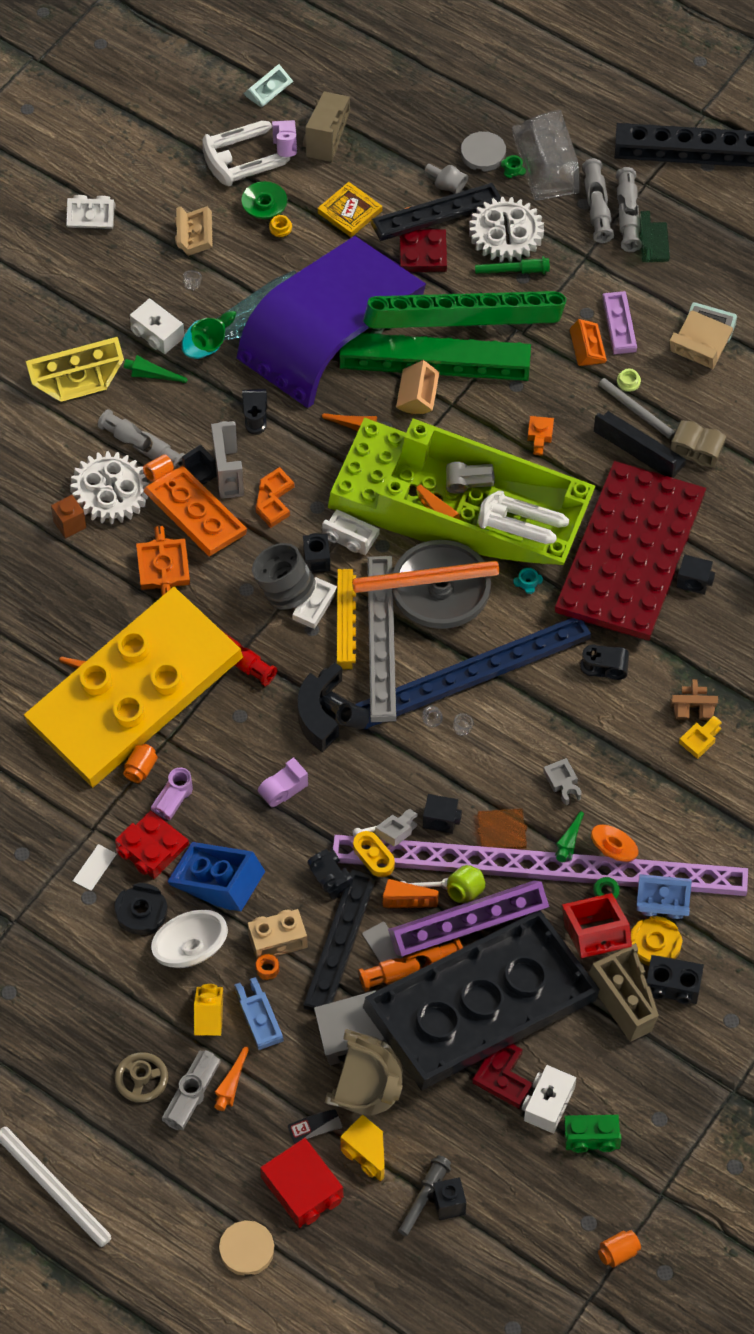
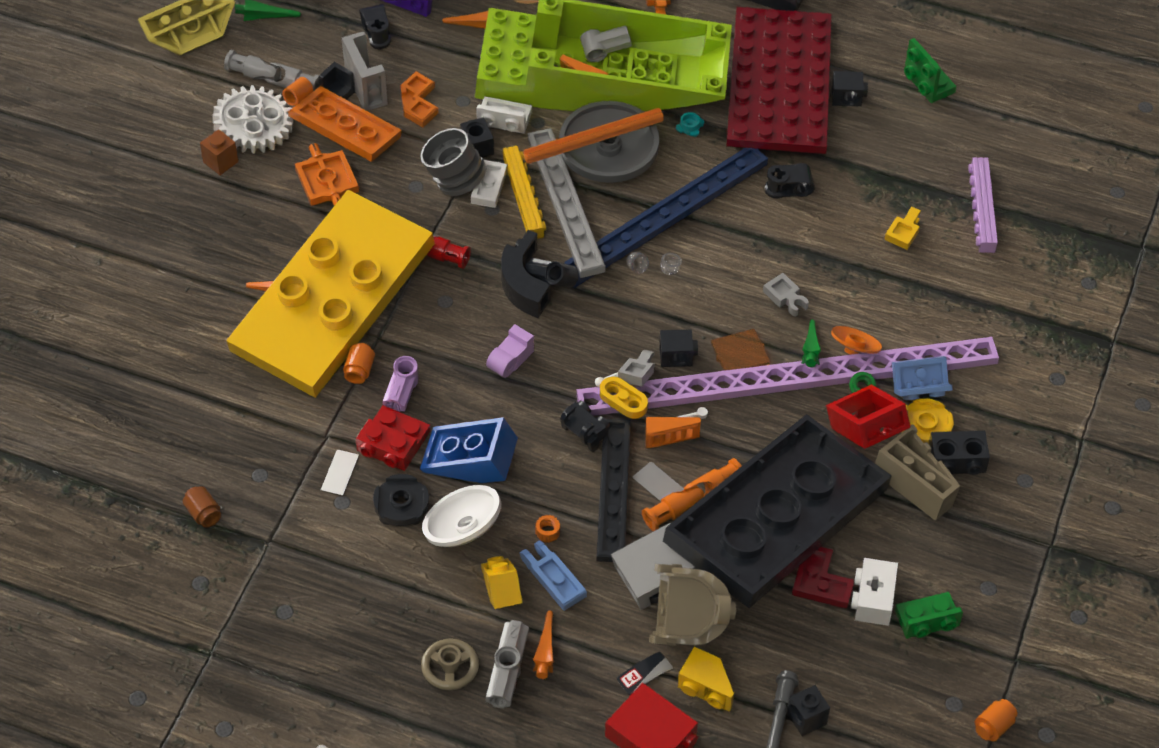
camera: 15 degrees left, 5 degrees down
(277, 934) = (549, 494): tan brick -> none
(465, 884) = (723, 407): lime head -> none
(468, 918) = (737, 437): medium lavender brick -> none
(494, 512) = (671, 64): white piece -> none
(682, 702) = (886, 195): medium nougat hips -> none

